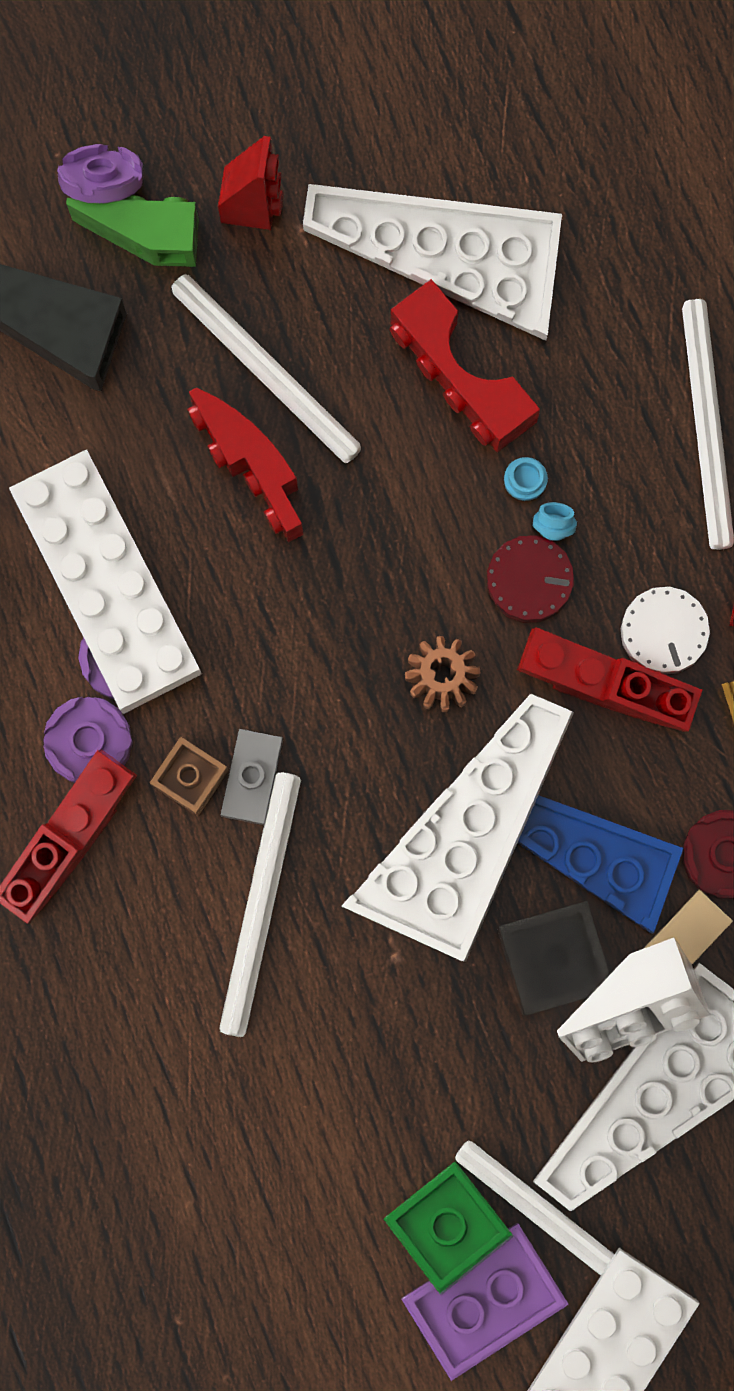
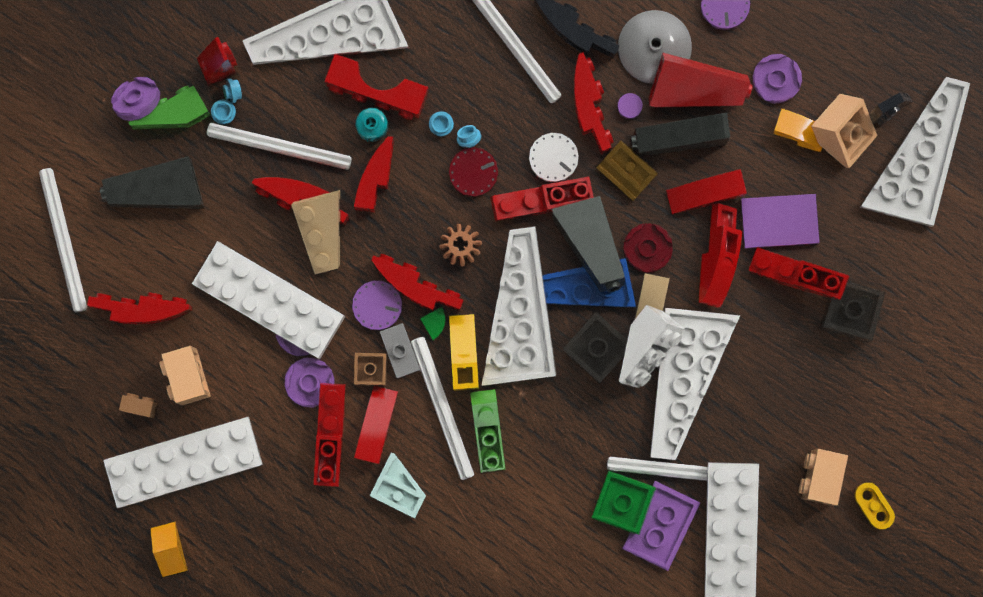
camera: 35 degrees left, 5 degrees up
(116, 984) = (398, 488): none -> light aqua wing
(143, 866) = (376, 425): none -> red slope
(216, 270) = (223, 112): none -> medium azure plate
(245, 518) = (319, 227): none -> tan wing
(248, 246) = (232, 90): none -> medium azure plate
(260, 688) = (377, 305): none -> medium lavender tile
(307, 981) = (487, 430): none -> bright green slope
(327, 679) = (406, 279): none -> red slope
(330, 767) = (434, 322): none -> green tile
(344, 839) = (463, 352): none -> yellow slope
(377, 495) = (374, 177): none -> red slope
(420, 416) = (369, 133): none -> teal head
(647, 787) = (590, 238): none -> pearl dark grey slope

